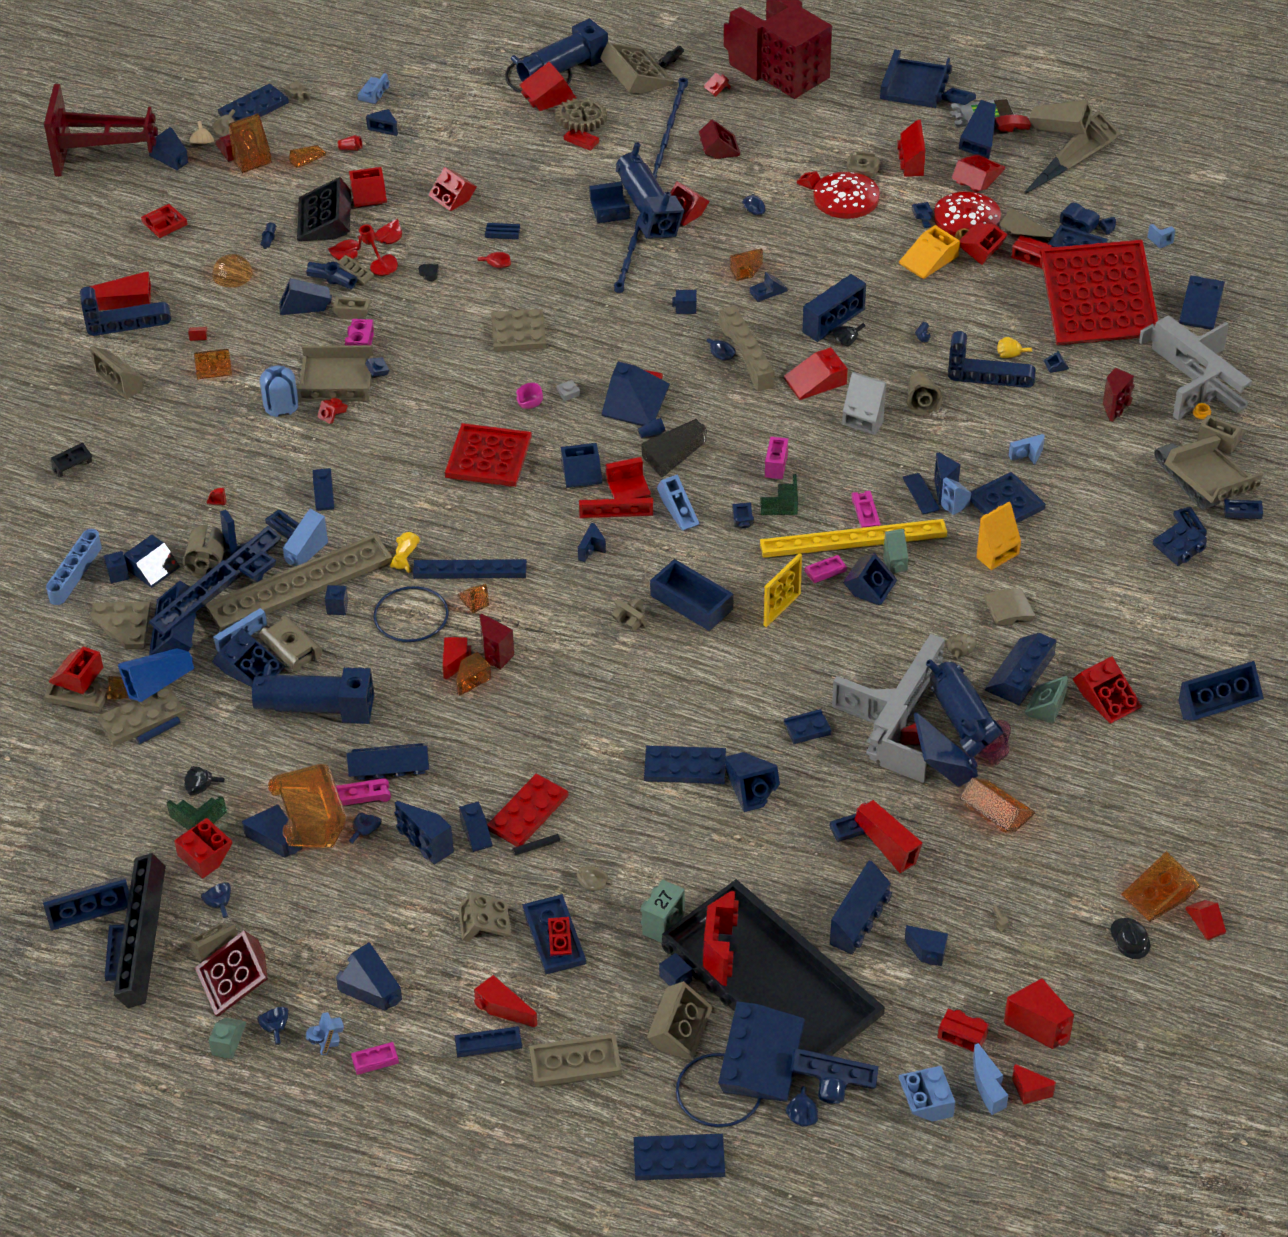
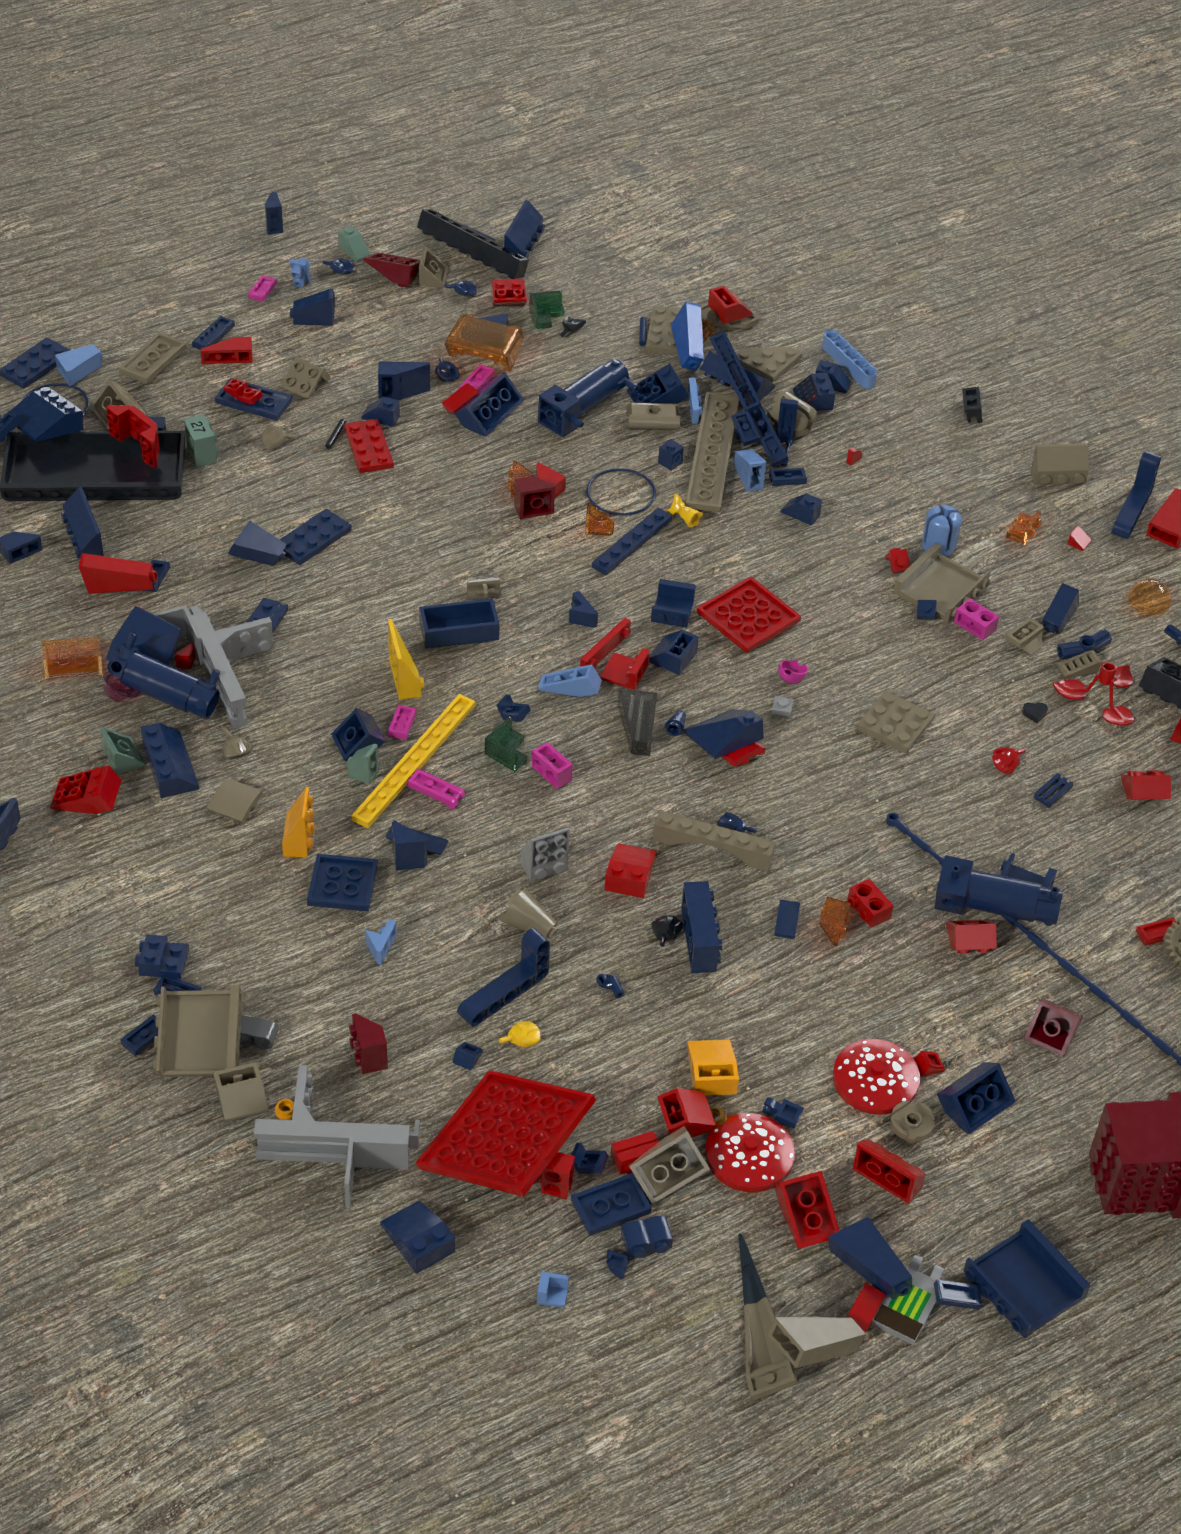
camera: 125 degrees right, 0 degrees up
(254, 1126) = (273, 214): none -> dark blue tile
(404, 776) = (459, 398): none -> red slope
(525, 502) = (673, 603): none -> dark blue panel
(649, 1108) = (78, 363): none -> medium blue slope
(685, 301) = (821, 843): dark blue brick -> none
(712, 256) = (870, 903): none -> red brick
(716, 84) = (1161, 1088): bracket -> none
(754, 205) = (925, 987): dark blue piece -> none
(812, 148) = (977, 1096): none -> dark blue slope
(954, 496) = (381, 842): medium blue slope -> none

